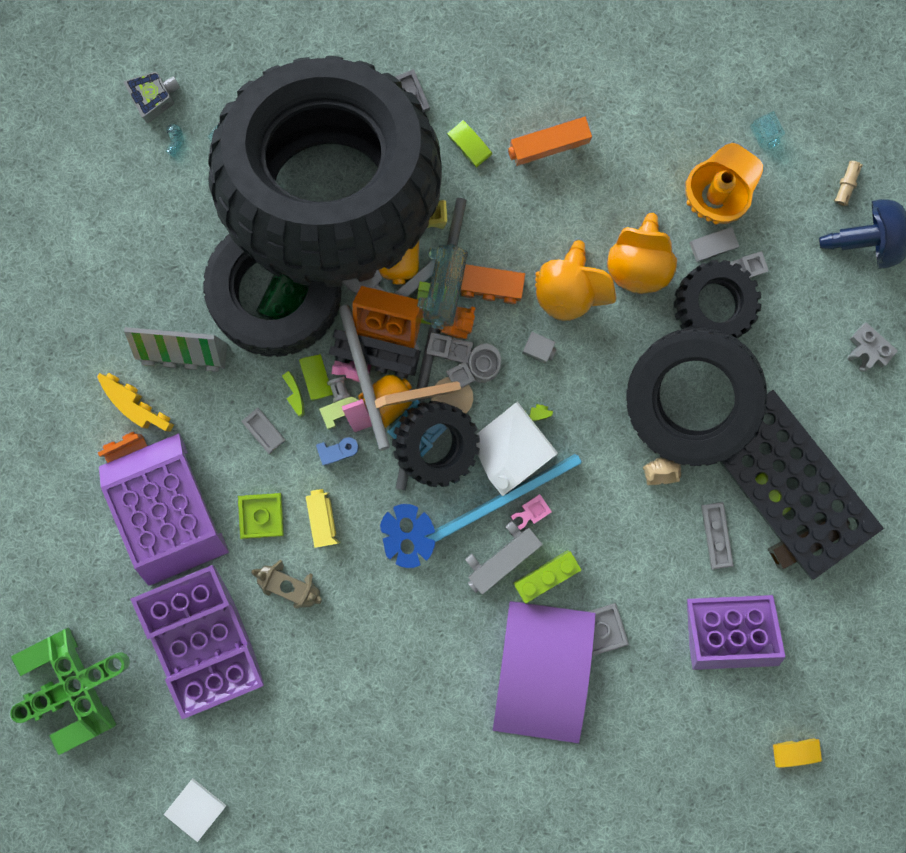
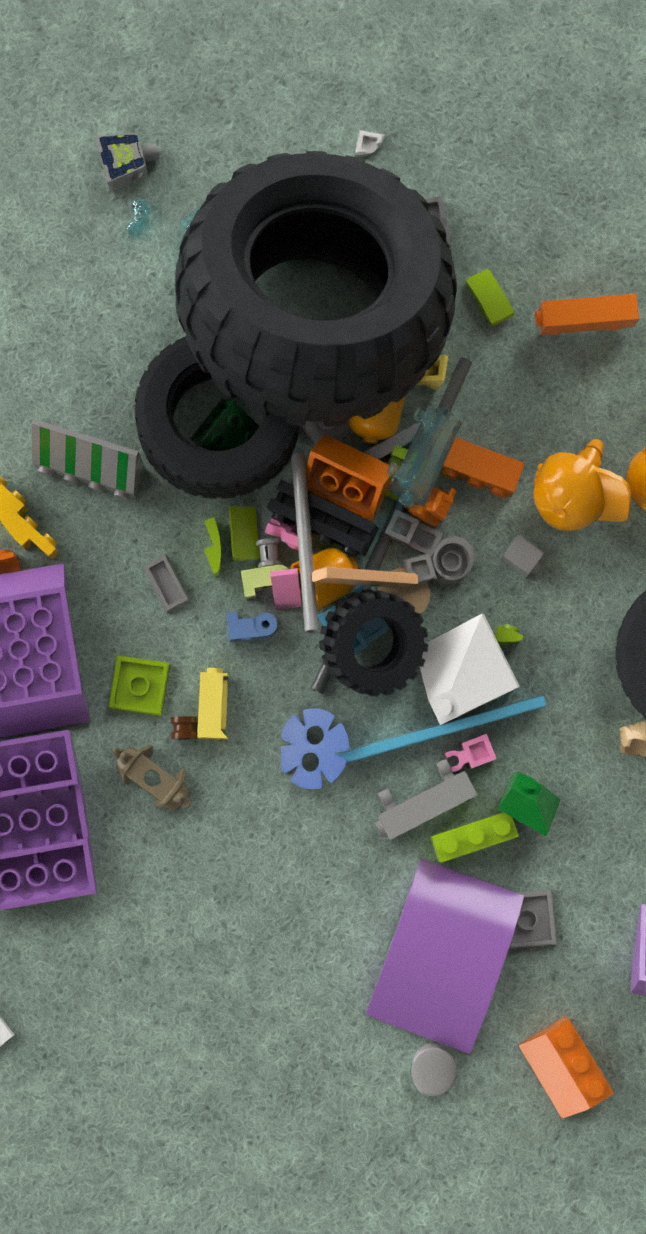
camera: 10 degrees right, 5 degrees down
(303, 541) = (184, 727): none -> reddish brown wheel
(345, 38) = (368, 143): none -> white tile
(553, 761) = (433, 1069): none -> light grey piece
(584, 542) = (529, 803): none -> green slope
(654, 738) = (565, 1068): none -> orange slope

